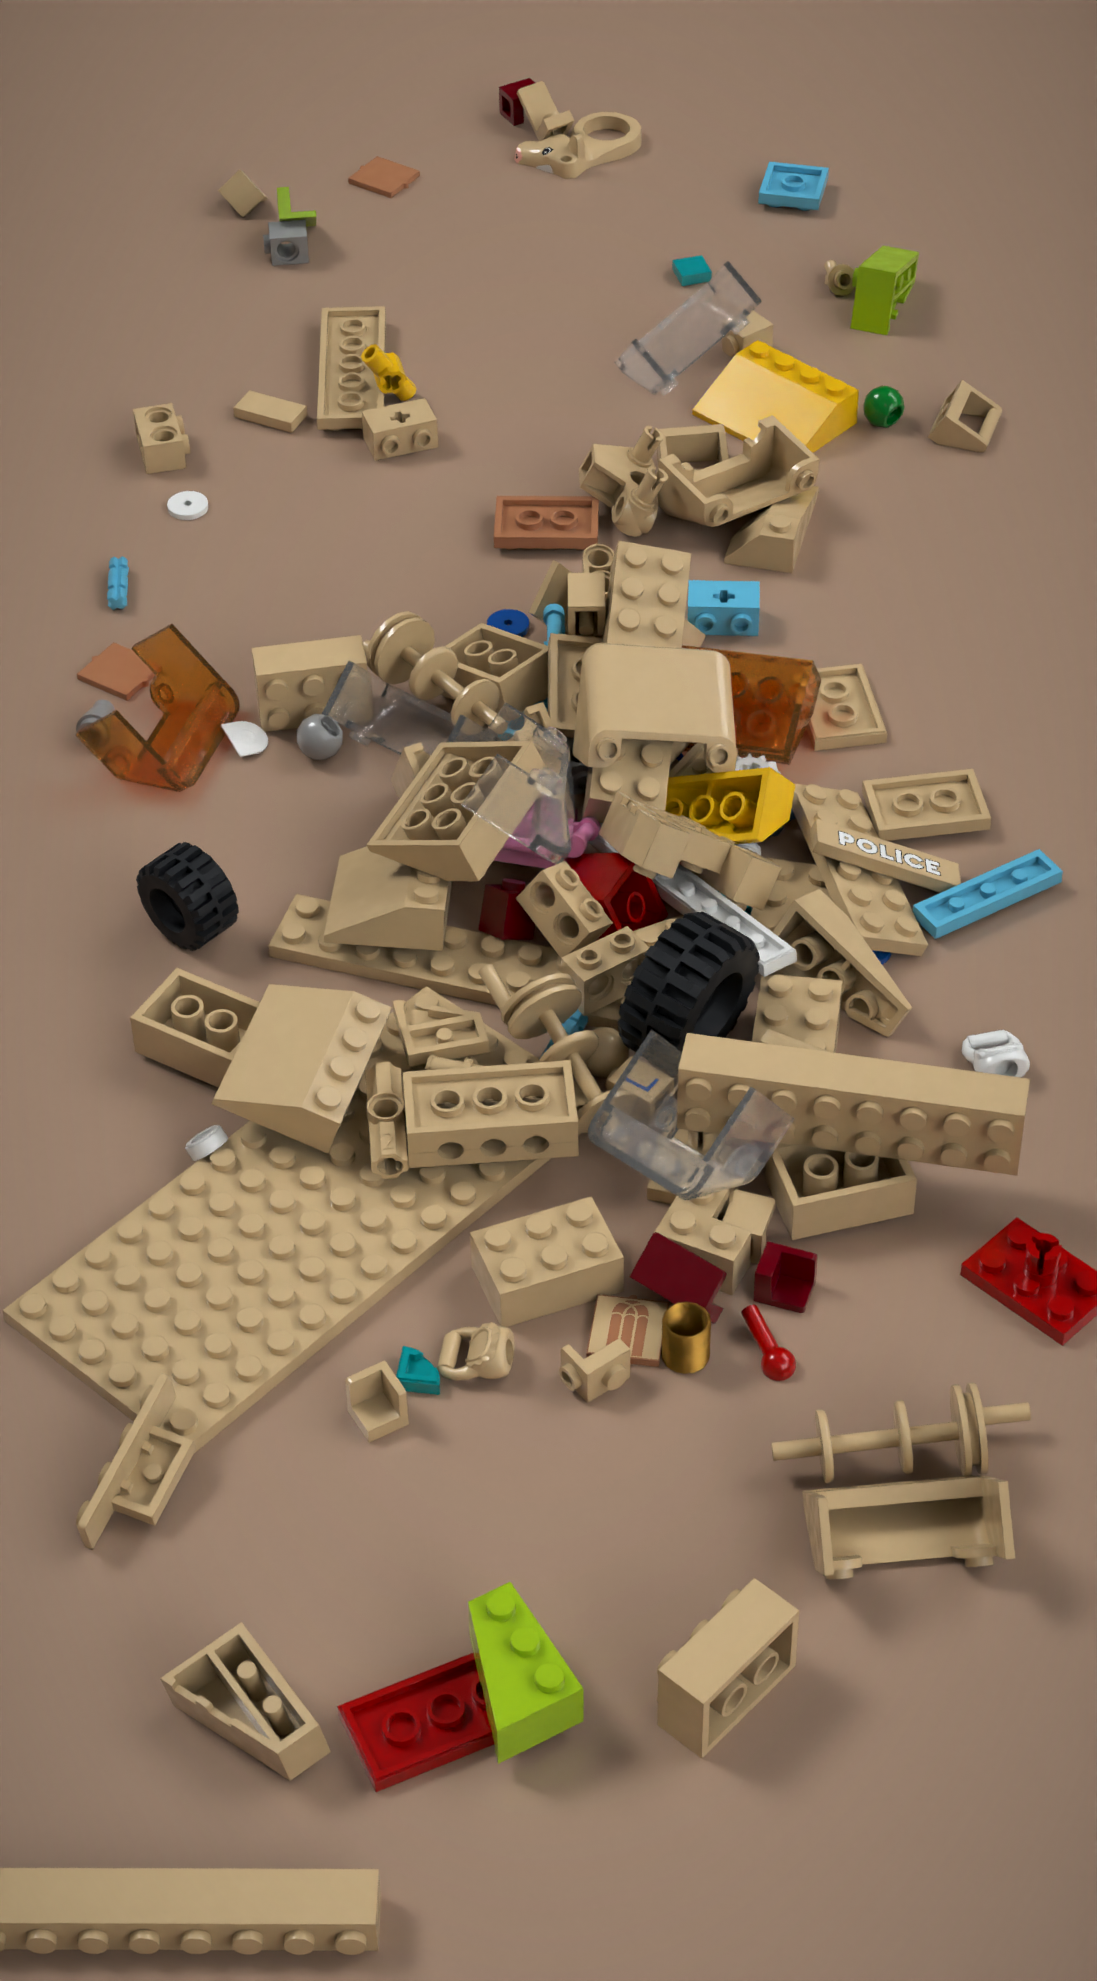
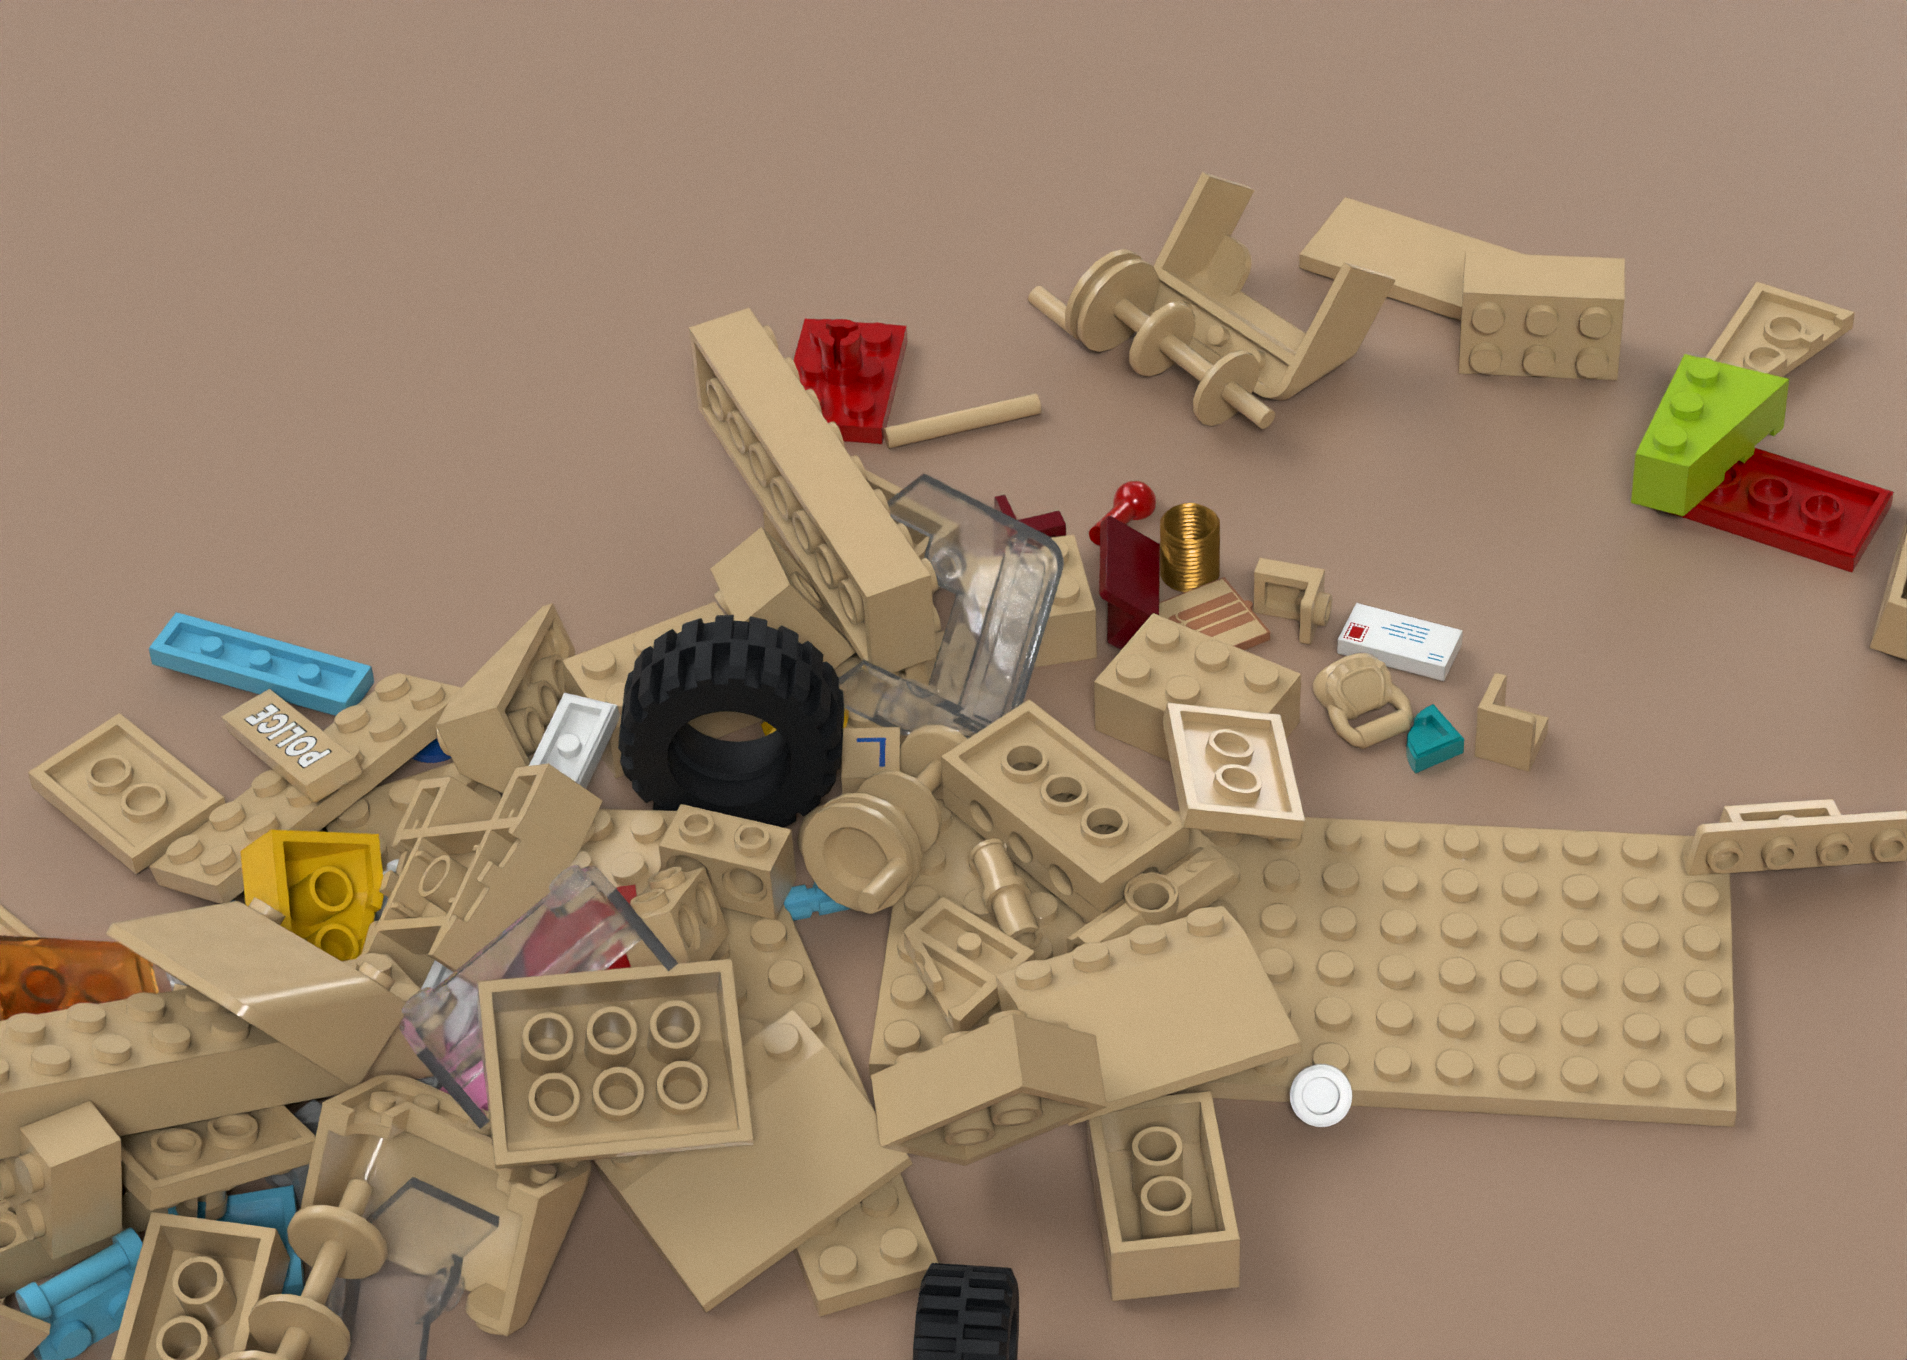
camera: 125 degrees left, 0 degrees up
(304, 945) = (988, 1089): none -> tan brick
(432, 1182) = (1232, 772): none -> tan plate
(512, 1410) = (1401, 641): none -> white tile
(598, 1829) = (1778, 331): none -> tan wing
(892, 1680) = (1416, 254): none -> tan tile
(939, 1319) = (962, 420): none -> tan bar
(996, 1053) = (545, 529): white piece -> none

